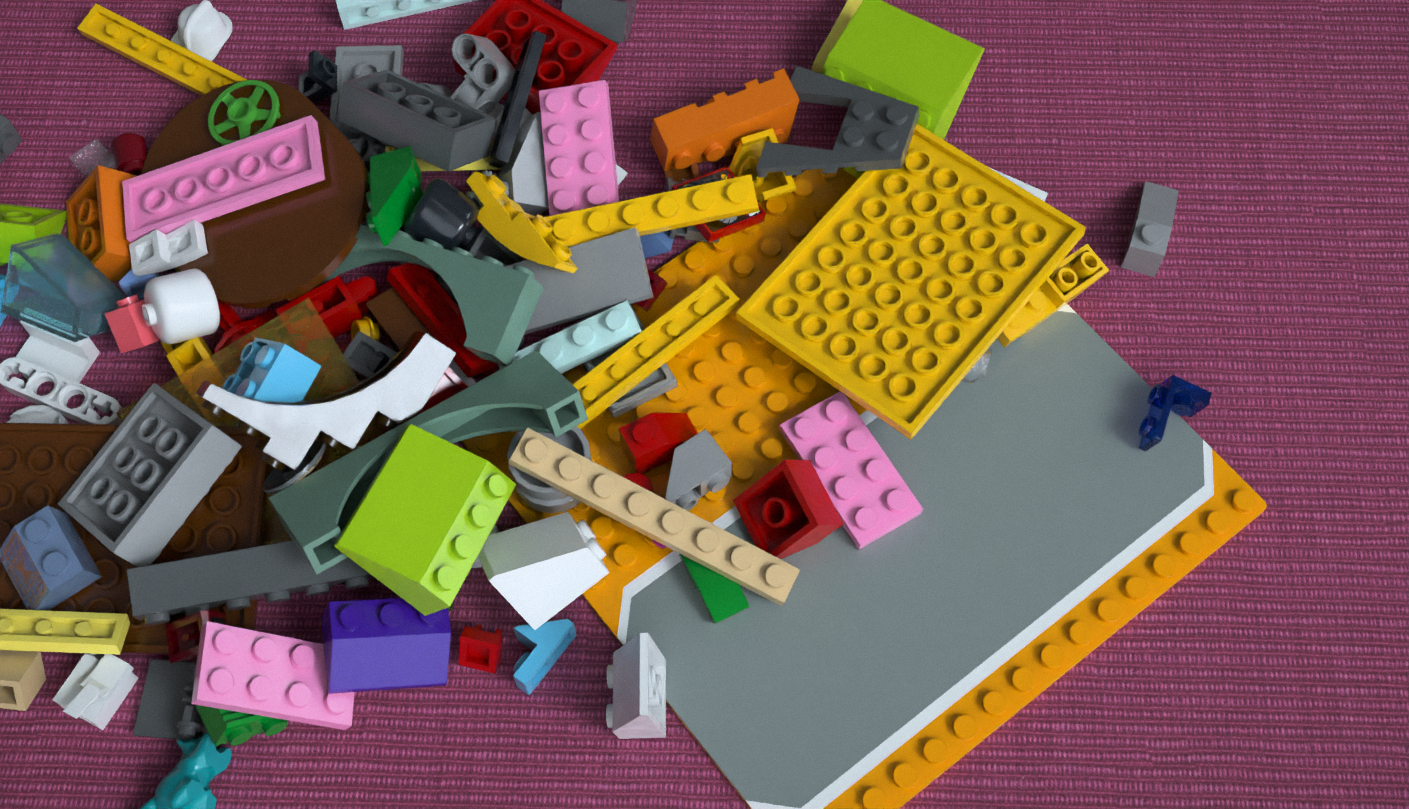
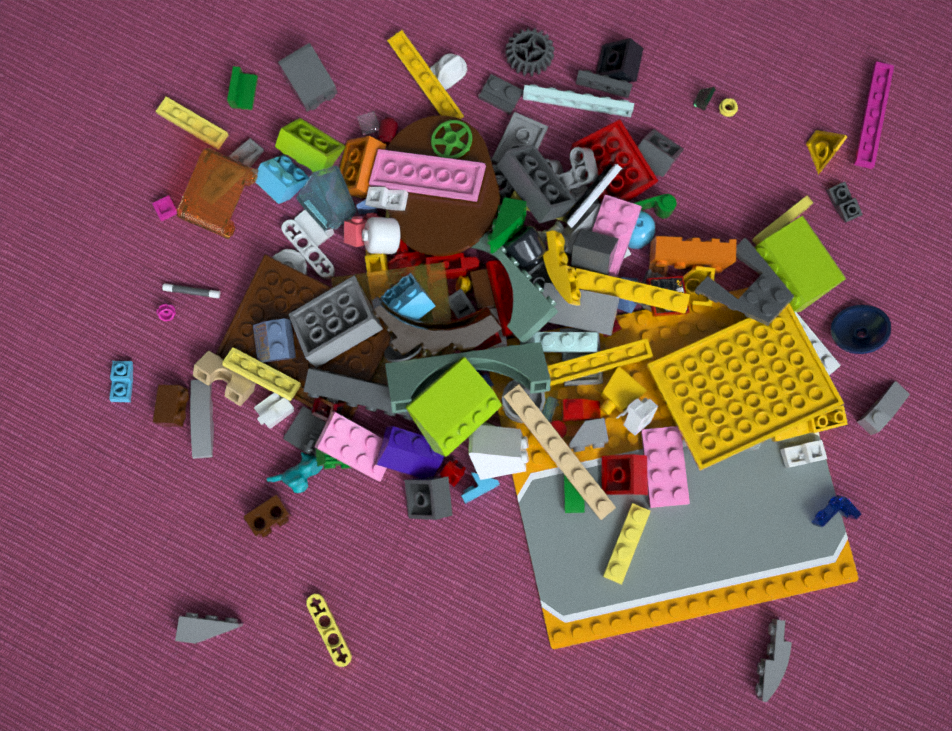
camera: 25 degrees right, 15 degrees up
(301, 33) = (500, 94): none -> dark grey plate
(320, 78) = (496, 129): black bracket -> none
(453, 710) = (428, 498): none -> dark grey slope
(561, 180) = (594, 251): none -> dark grey slope
(604, 453) = (549, 408): none -> clear light blue pin
(630, 132) = (643, 231): none -> medium azure cylinder
(638, 690) = (513, 530): white slope -> none
(641, 81) = (663, 205): none -> green door
(715, 380) = (620, 392): none -> yellow torso
(763, 398) = (639, 414): none -> white piece
(850, 628) = (626, 543): none -> light yellow plate
(1049, 124) = (861, 321): none -> dark blue dish
(1066, 348) = (803, 454): none -> white slope
(1214, 716) = (774, 668): none -> light grey slope

